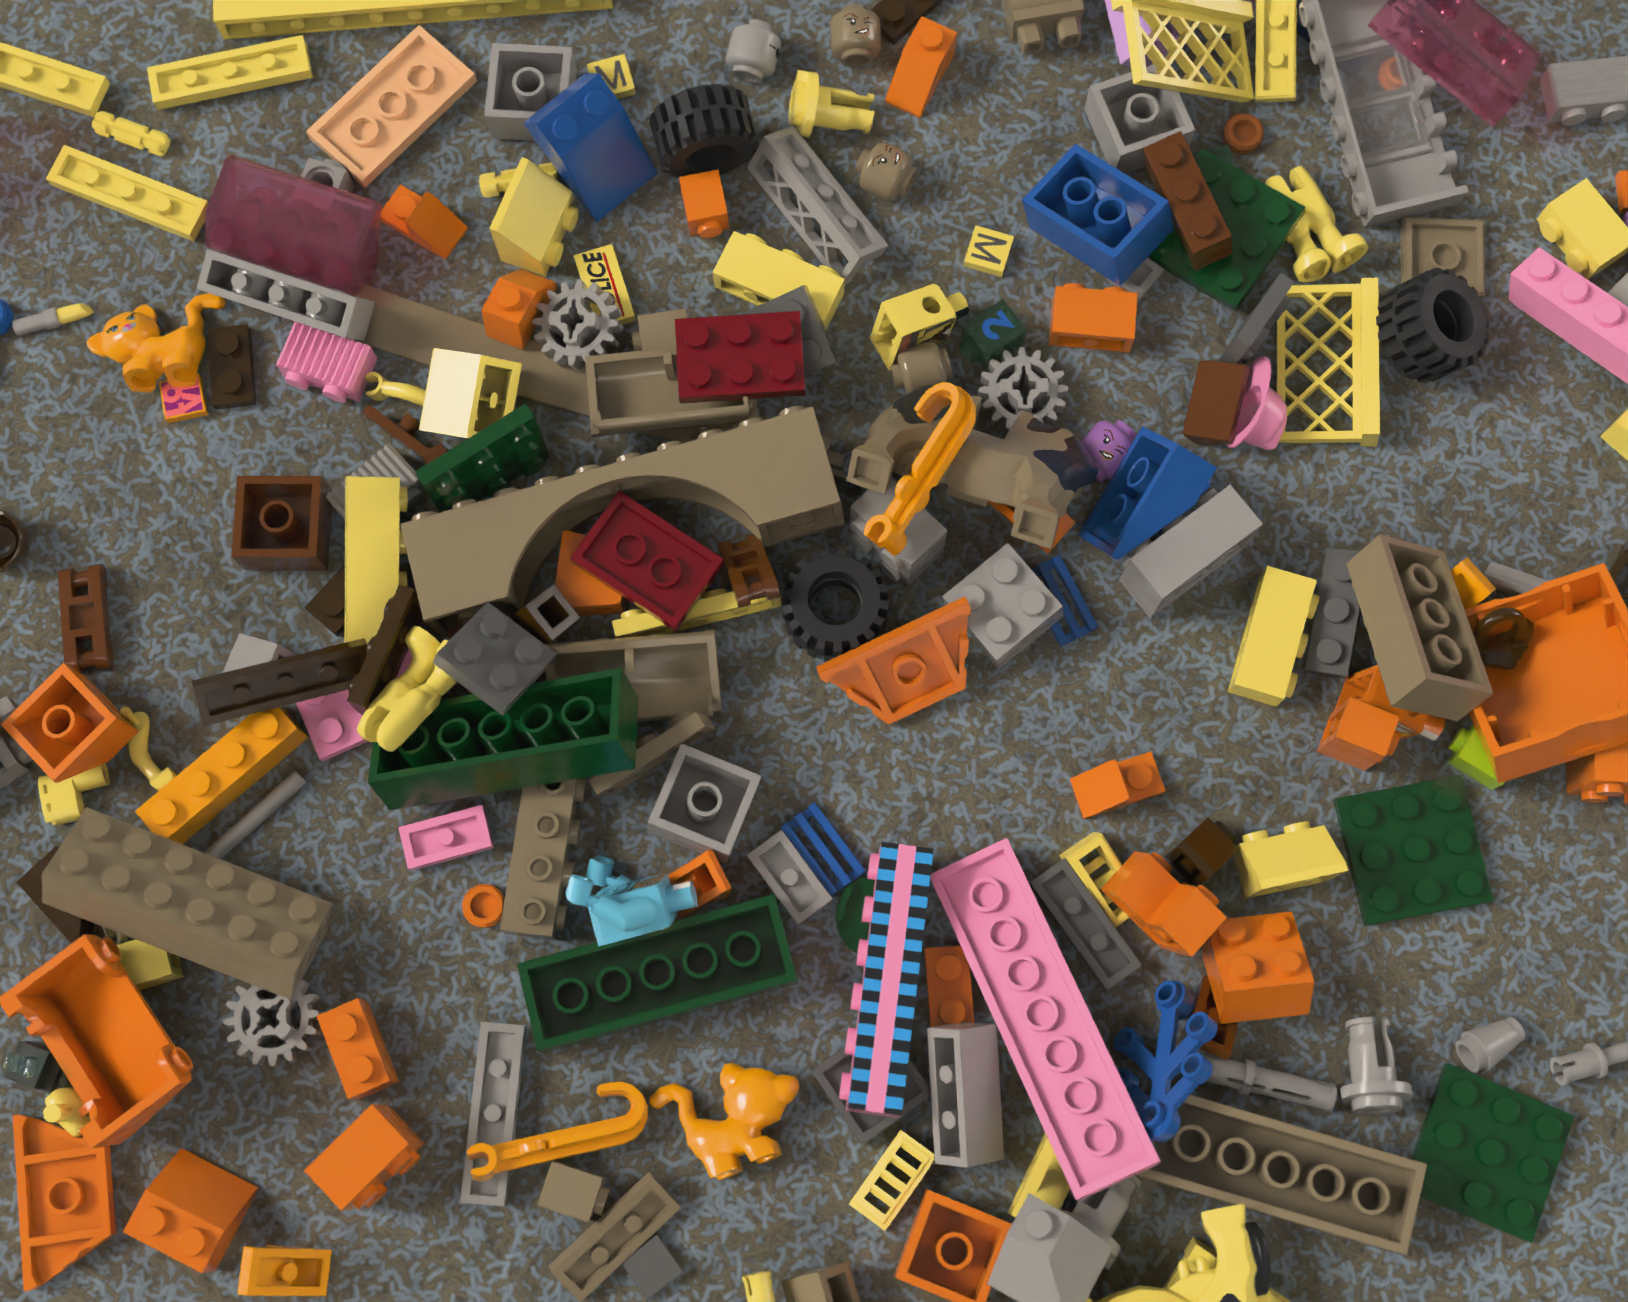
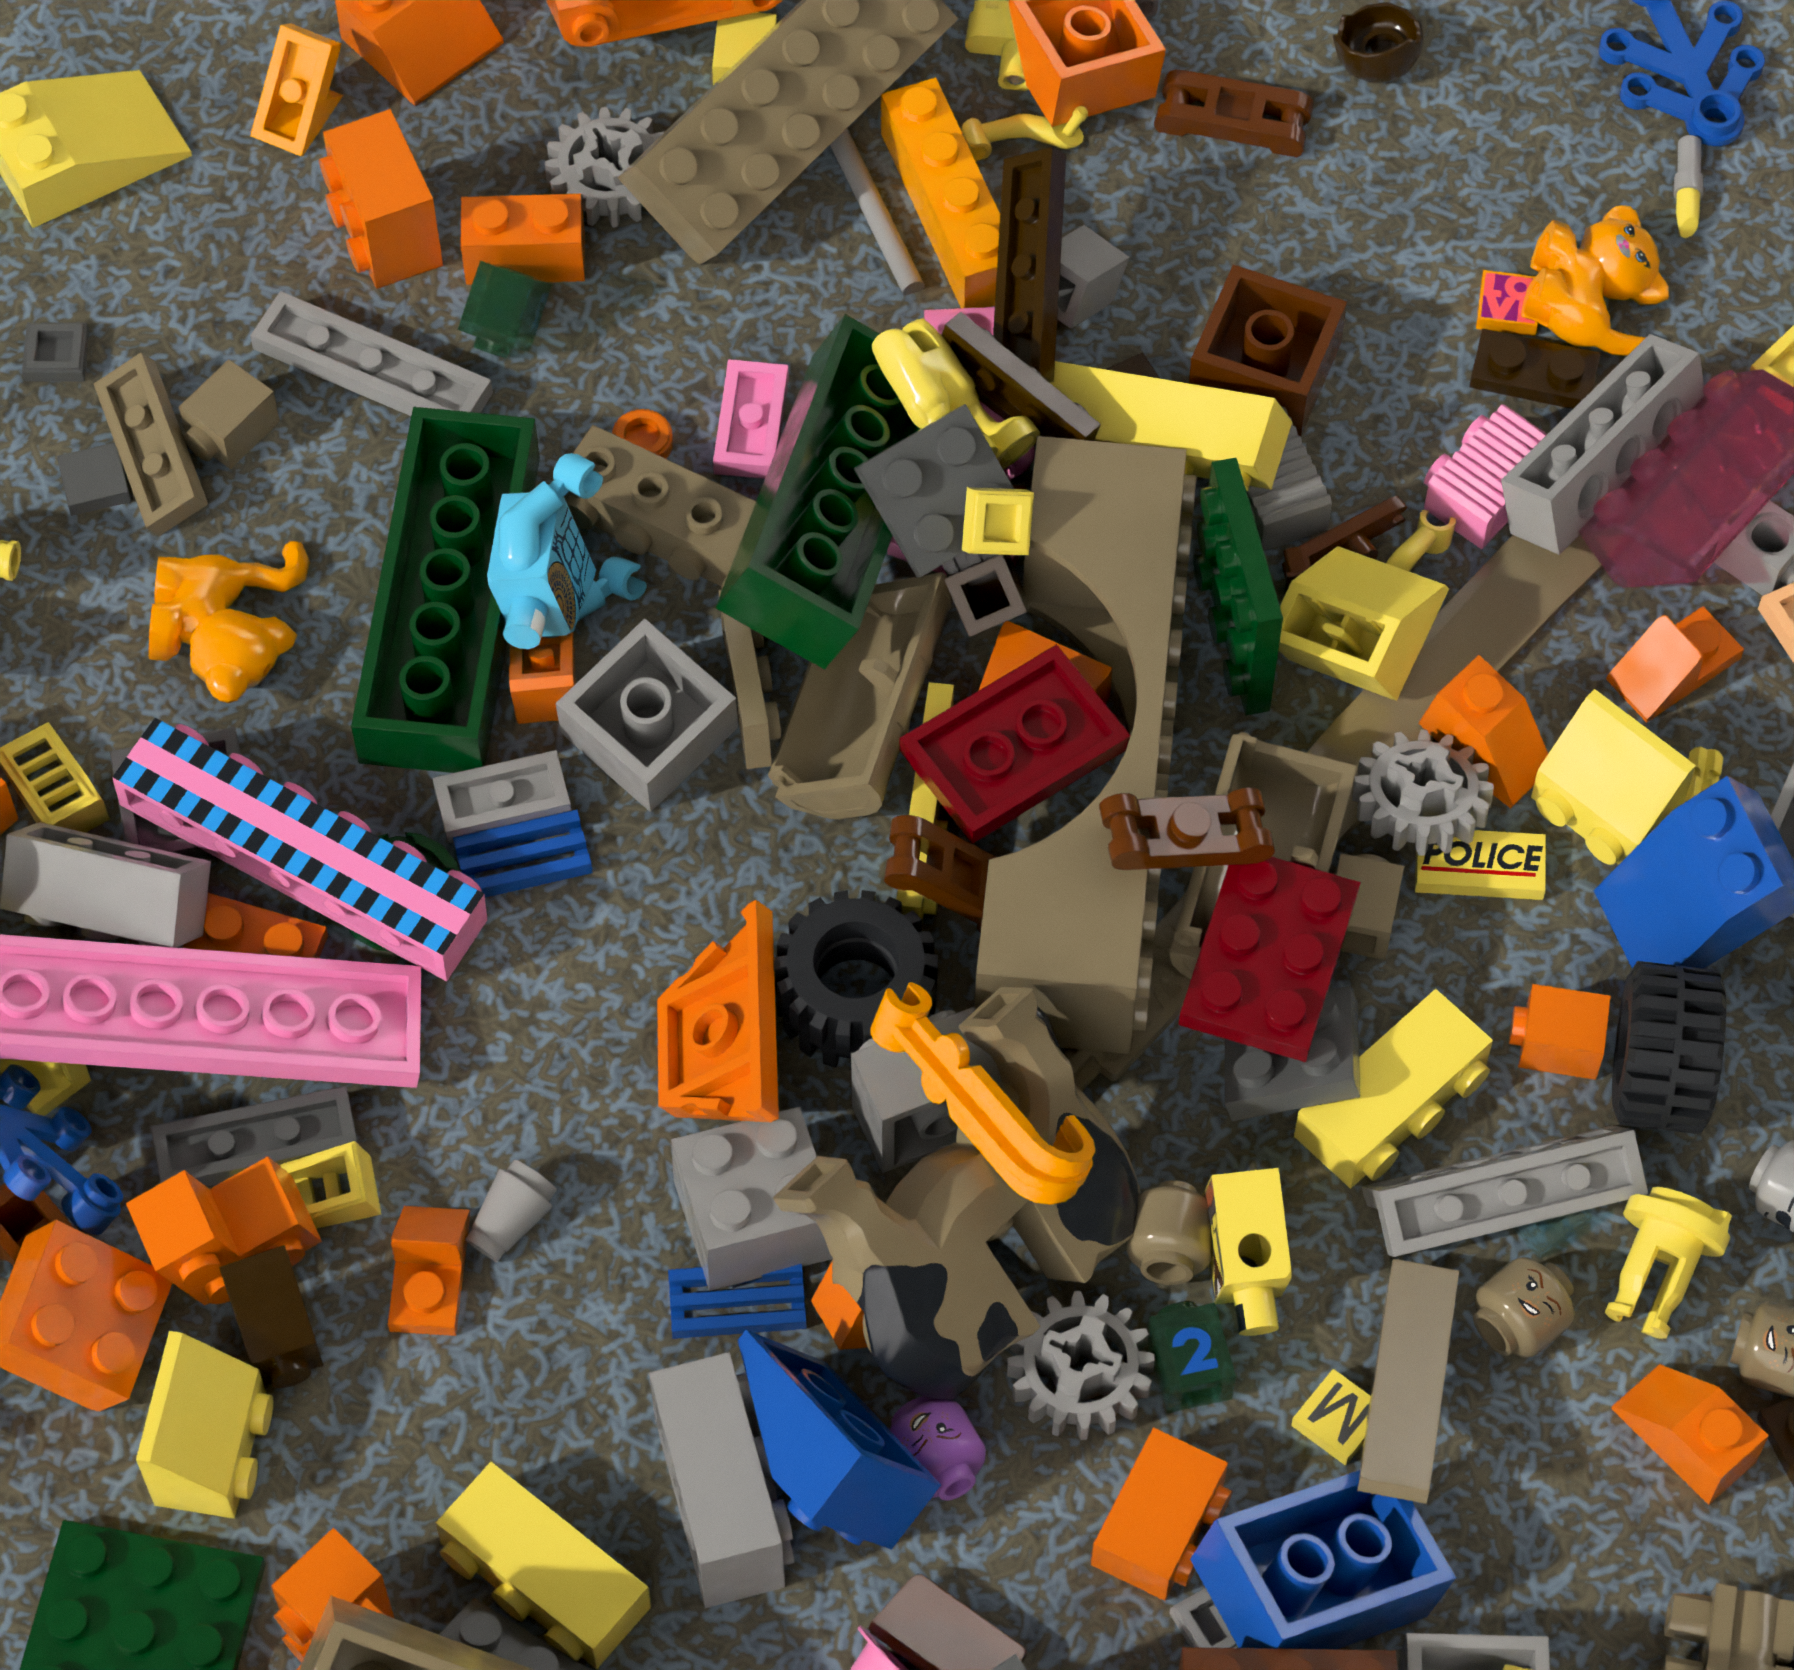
camera: 110 degrees right, 15 degrees down
(421, 1035) = (503, 309): none -> clear green brick
(507, 611) = (997, 521): none -> light yellow tile
(568, 1141) = (290, 423): light orange piece -> none
(692, 415) = (1186, 830): none -> reddish brown plate
(967, 206) = (1408, 1381): none -> dark tan slope
(1064, 751) = (510, 1209): none -> light grey cone

